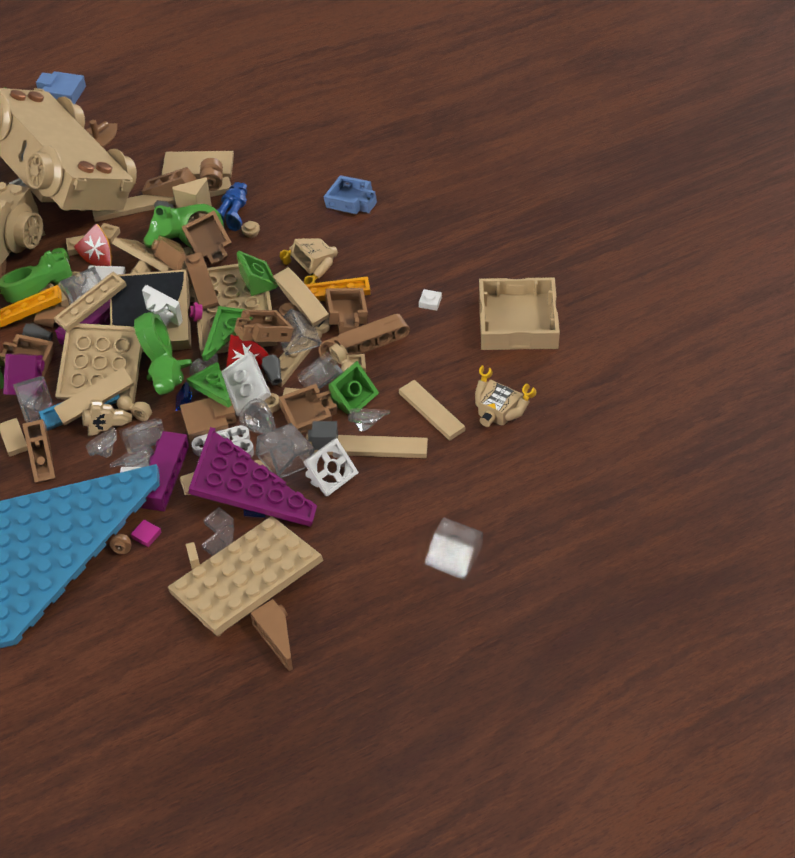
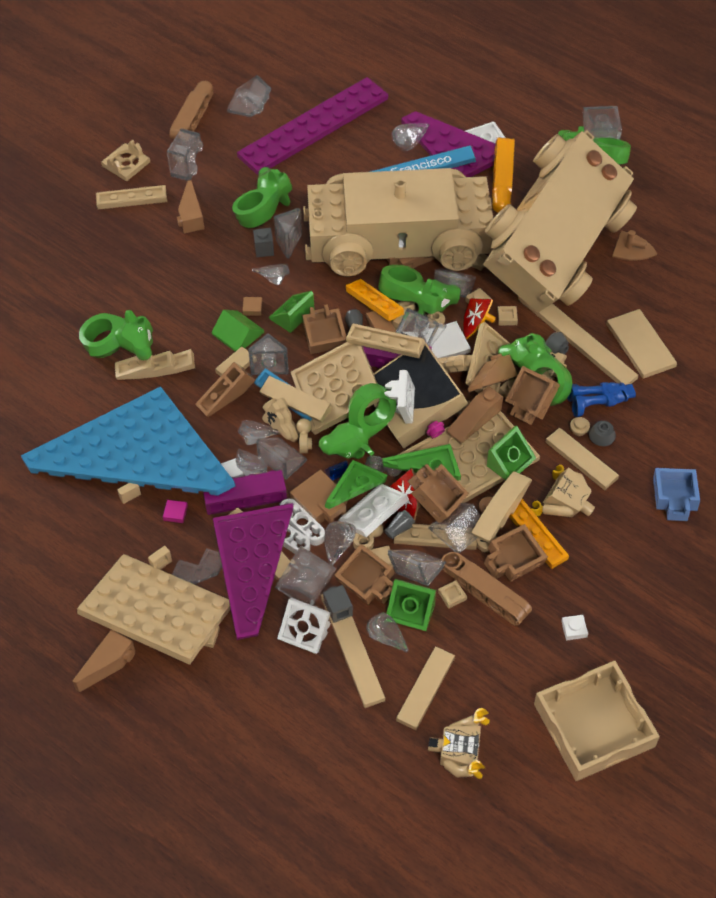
camera: 65 degrees right, 5 degrees up
(21, 368) = (293, 332): magenta slope -> none
(54, 242) = (461, 280): none -> clear slope
(62, 85) = (672, 187): medium blue piece -> none
(101, 563) = (128, 492): none -> tan tile
(120, 544) = (153, 497): medium nougat plate -> none
(163, 184) = (591, 335): medium nougat slope -> none
(191, 194) = (582, 360): tan slope -> none
(212, 170) = (623, 358): medium nougat wheel -> none
(267, 217) = (602, 433): none -> dark grey cone
(280, 239) = (582, 459): none -> tan tile
(339, 354) = (442, 573): tan plate -> none
(454, 548) = (257, 776): clear slope -> none

